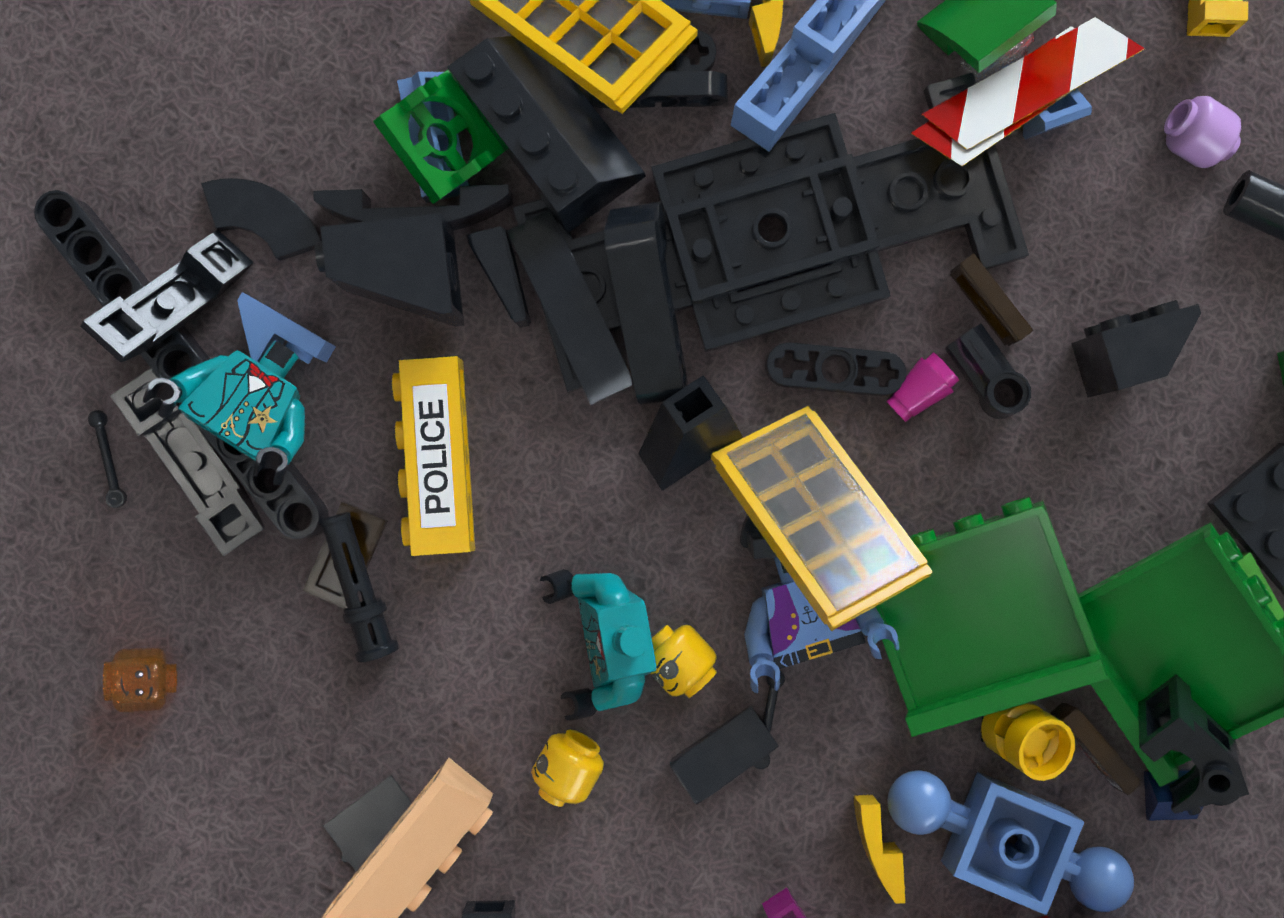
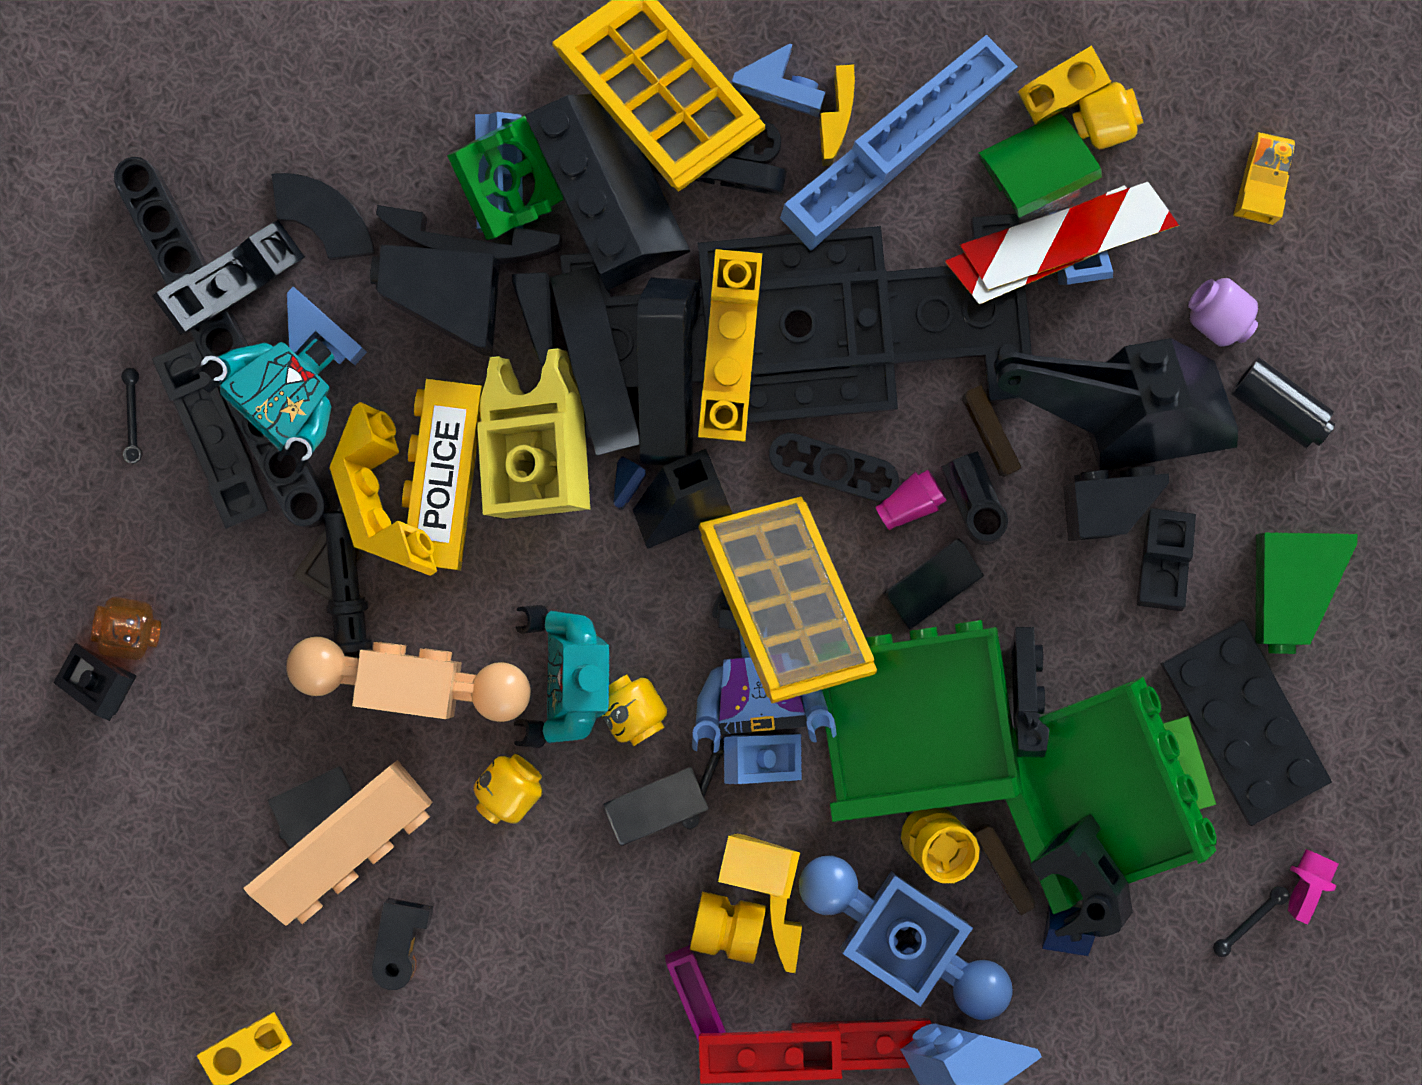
camera: 10 degrees right, 0 degrees up
(121, 742) = (94, 681): none -> black slope
(348, 443) = (363, 446): none -> yellow slope
(440, 681) = (408, 683): none -> light nougat brick
(519, 391) = (531, 429): none -> light yellow brick
(627, 425) = (628, 479): none -> dark blue slope
(708, 260) = (730, 345): none -> yellow slope
(823, 684) = (762, 758): none -> medium blue slope
(824, 867) = (728, 927): none -> yellow wheel
(847, 799) = (758, 865): none -> yellow slope
(961, 467) = (933, 583): none -> black slope
(1087, 566) = (1027, 696): none -> black hinge
(1138, 242) = (1137, 406): none -> black slope
(1193, 398) = (1166, 559): none -> black slope

